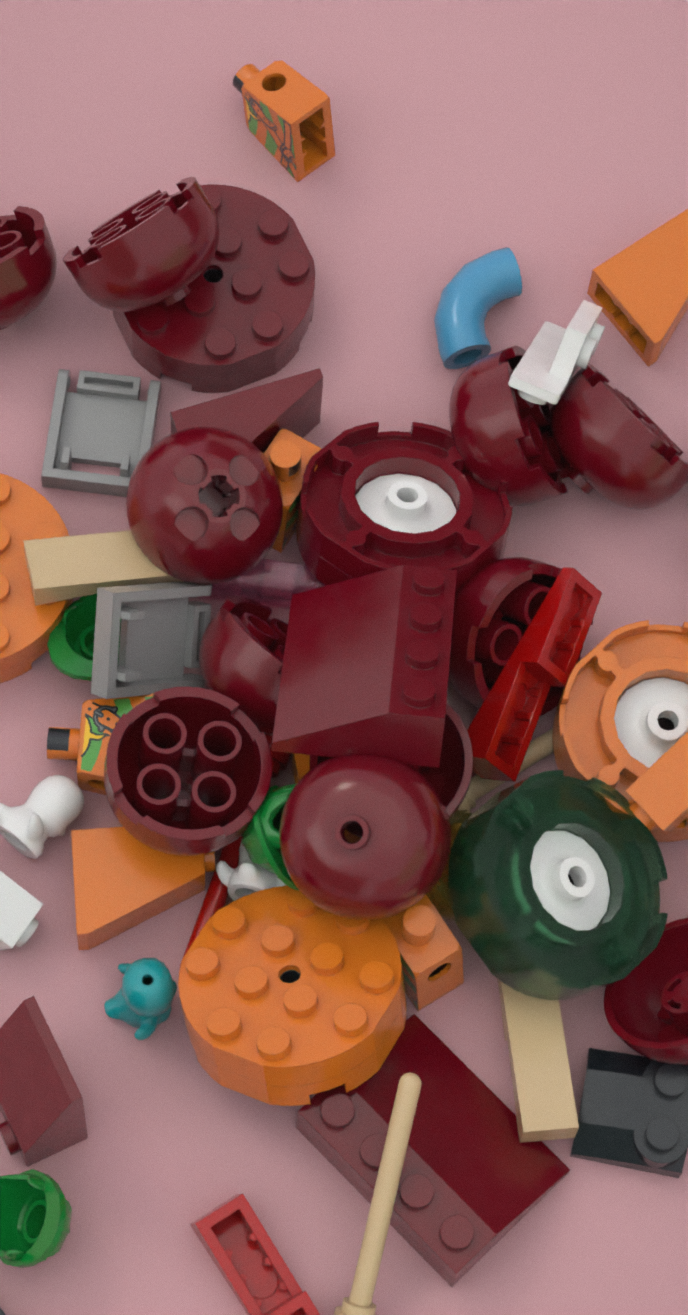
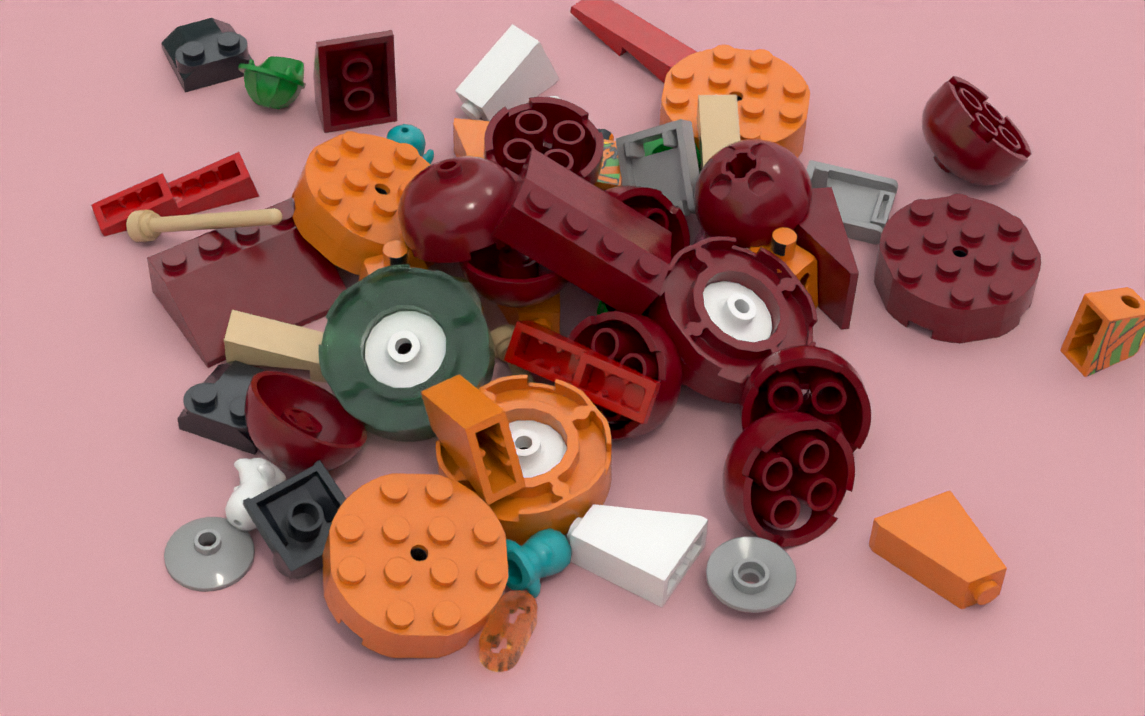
camera: 105 degrees right, 20 degrees down
(148, 250) = (967, 187): dark red cylinder -> none
(466, 304) = (932, 418): dark azure cylinder -> none
(557, 355) = (853, 415): white bracket -> none

